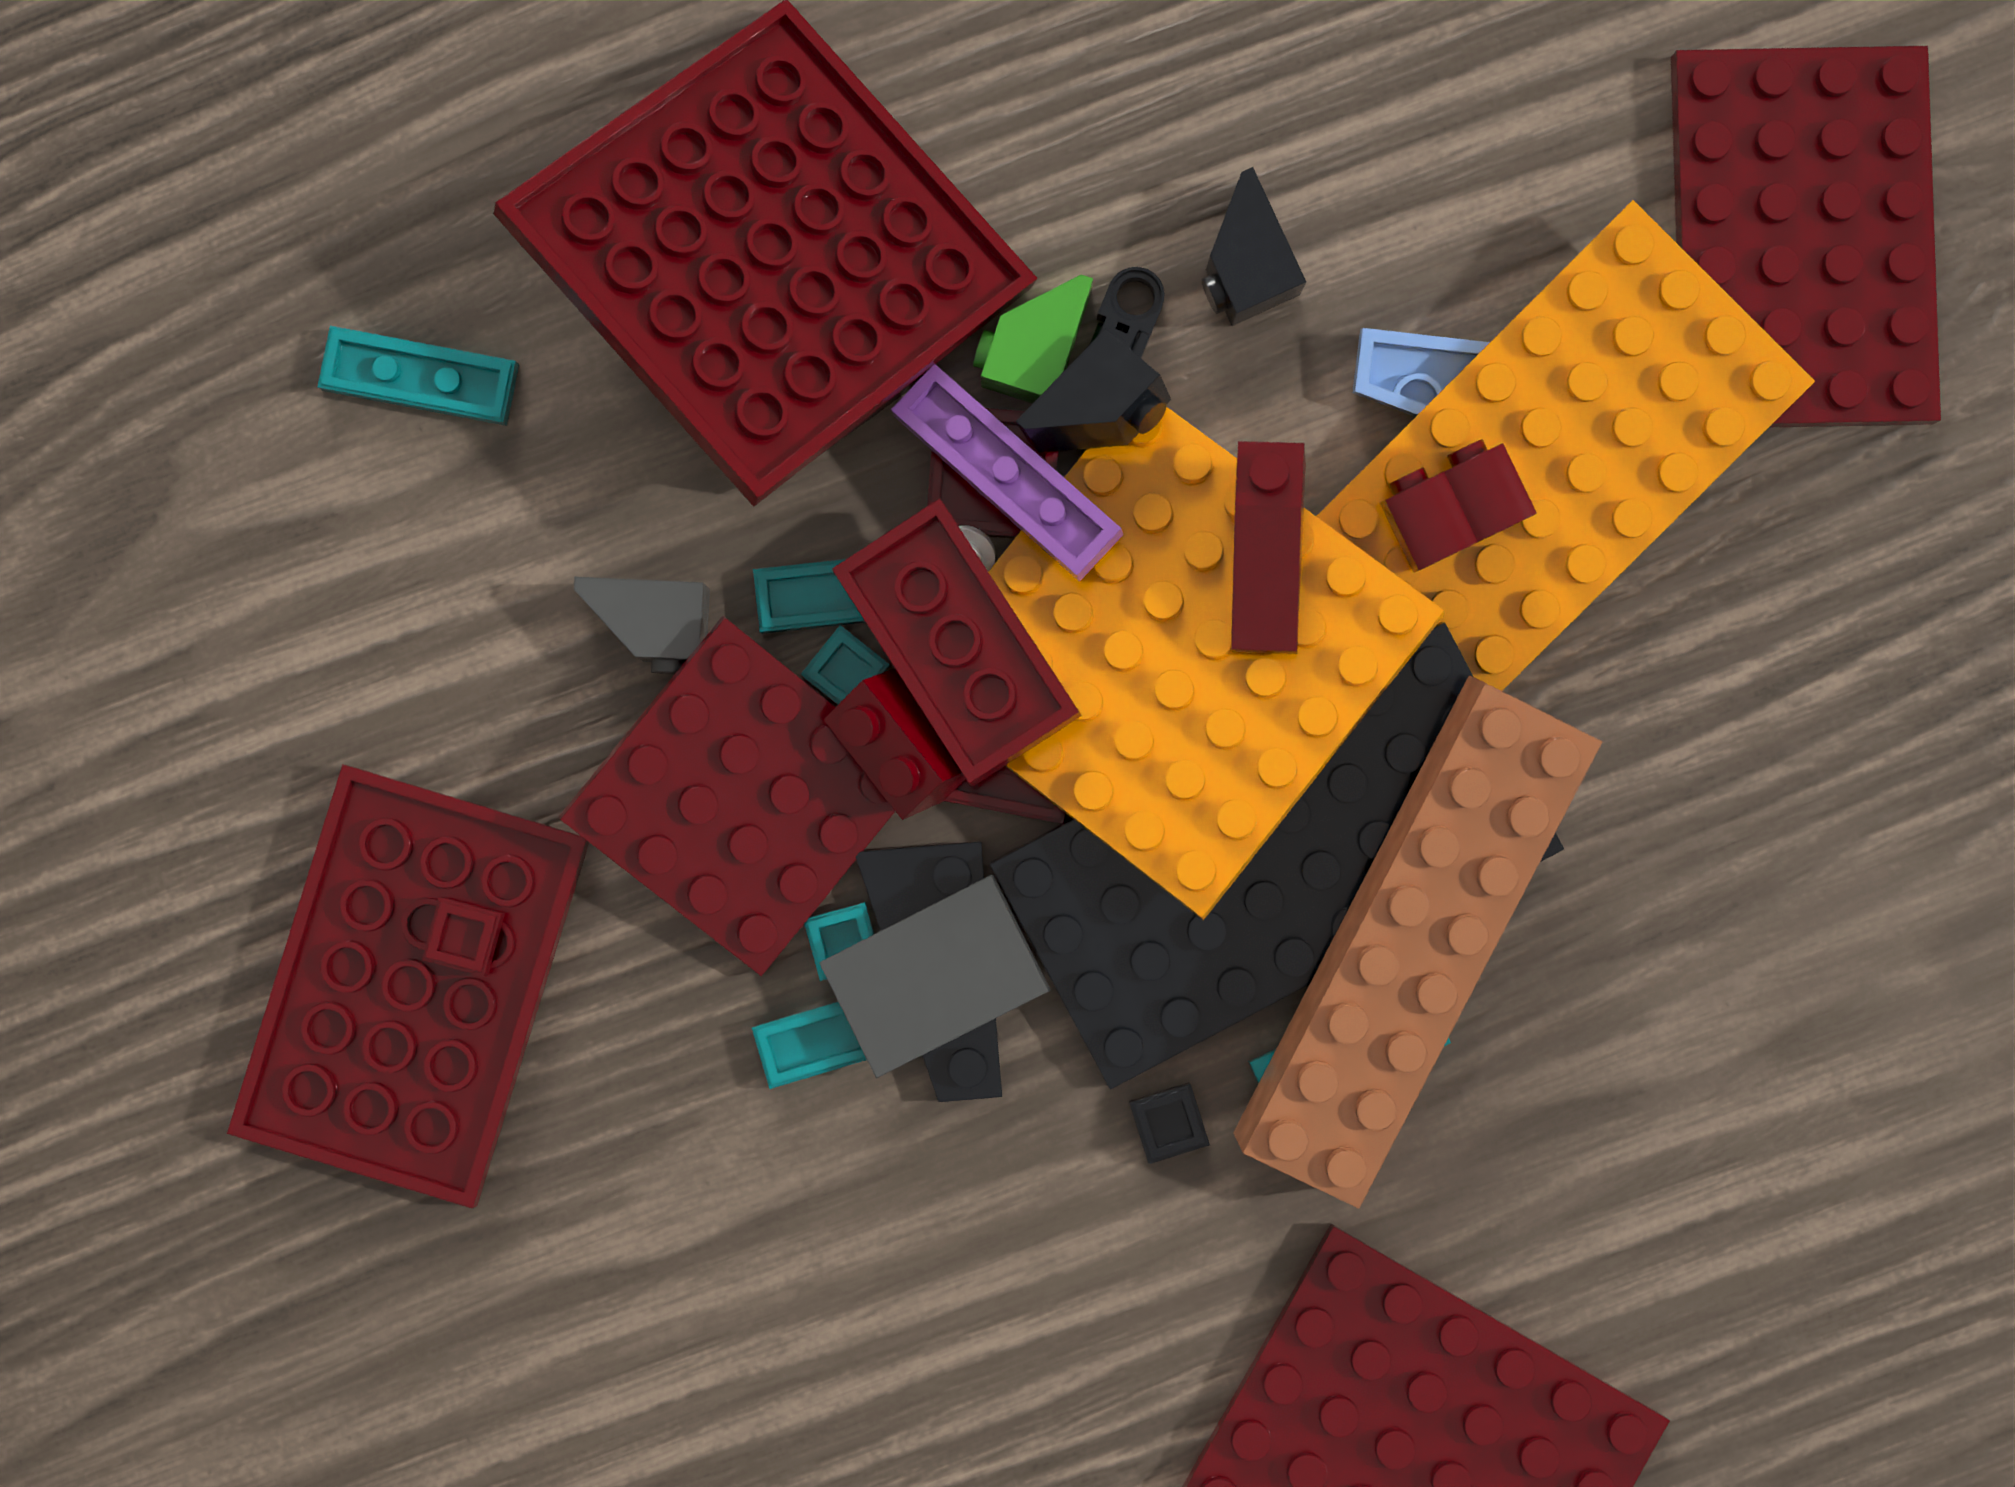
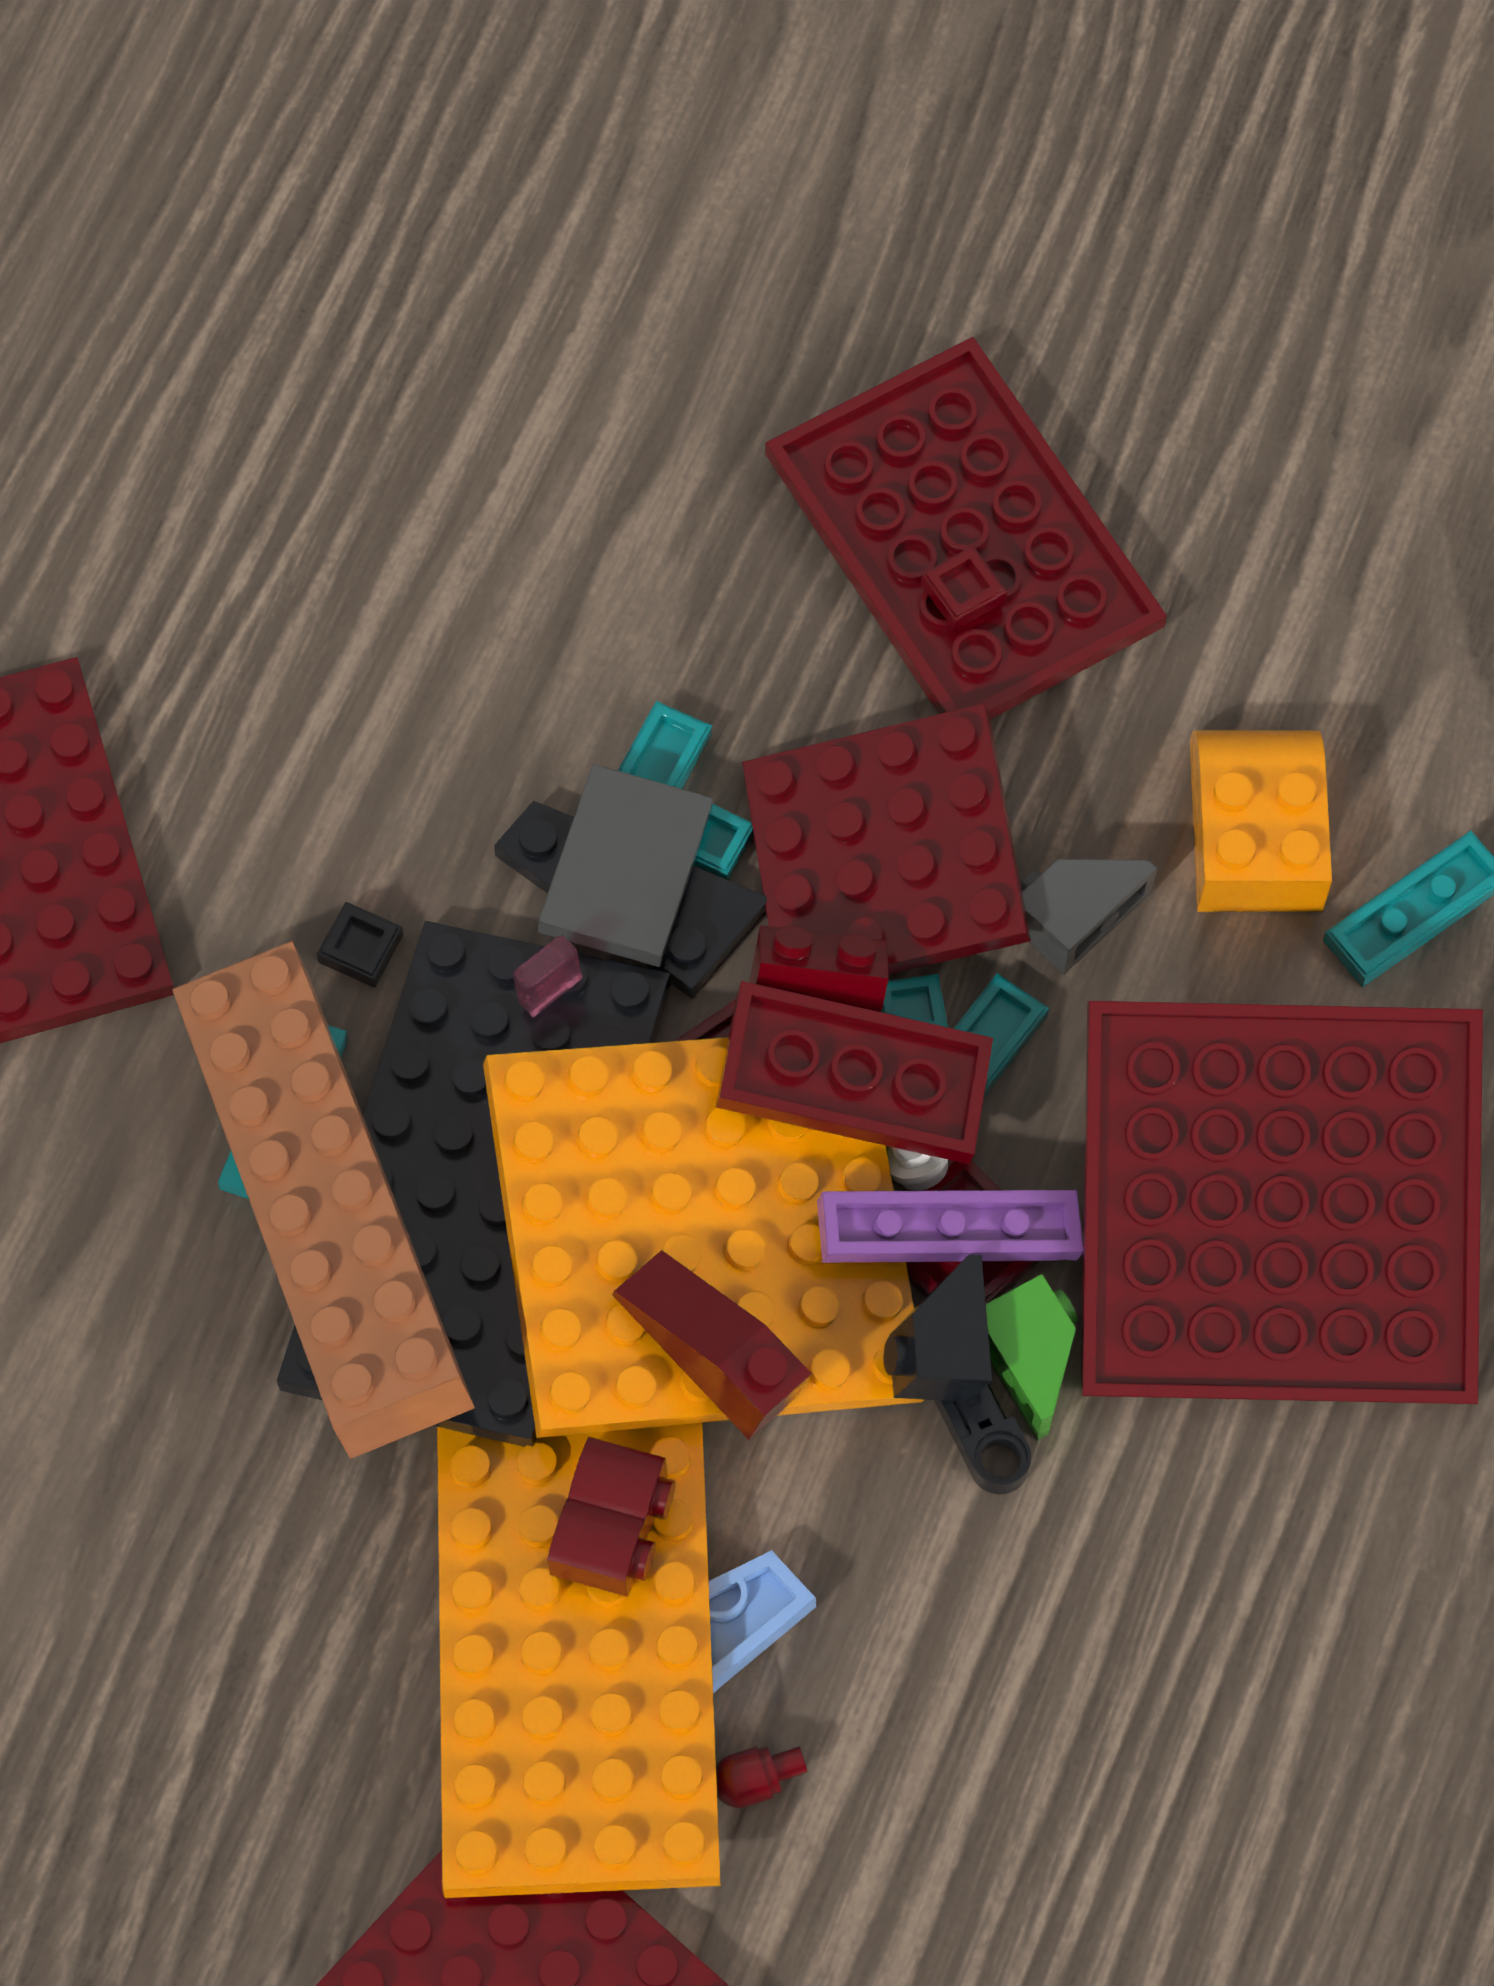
camera: 130 degrees right, 20 degrees down
(449, 549) = (1260, 820): none -> light orange brick
(1088, 941) = (547, 975): none -> clear pink tile
(1251, 257) = (953, 1568): black slope -> none
(1518, 261) = (755, 1775): none -> dark red cylinder

